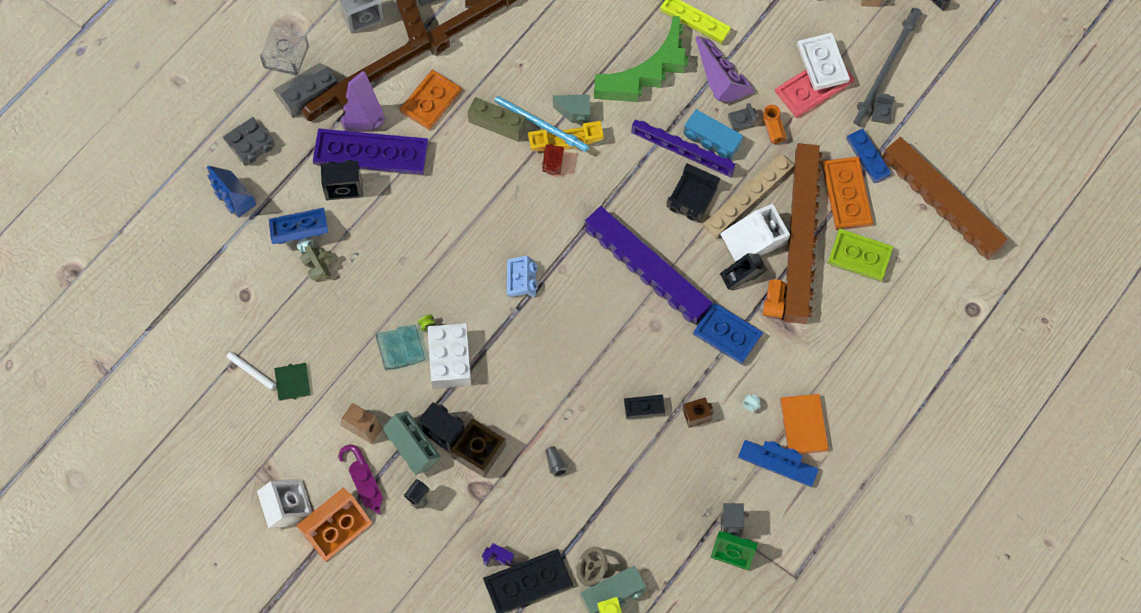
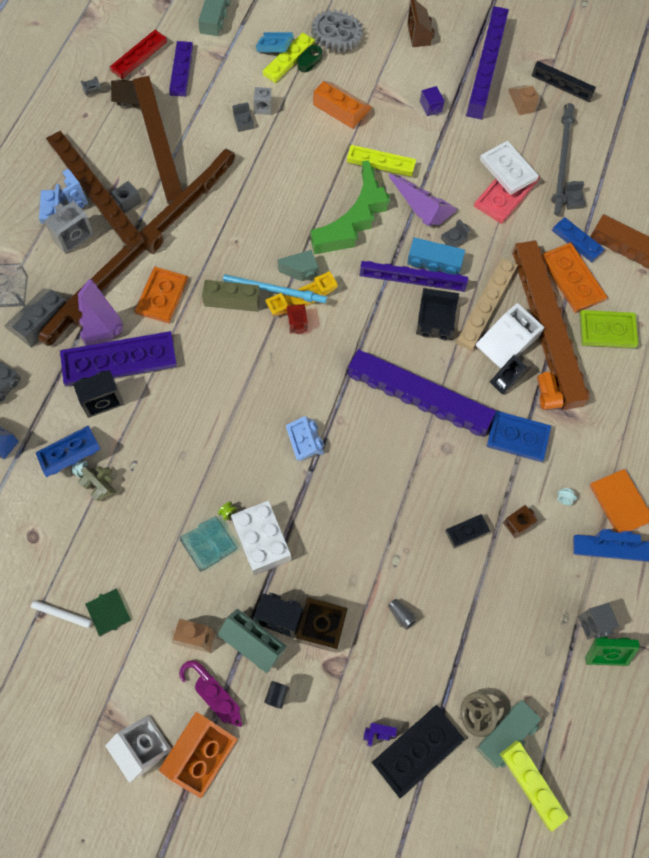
camera: 20 degrees left, 0 degrees up
(774, 125) = (486, 233): orange piece -> none

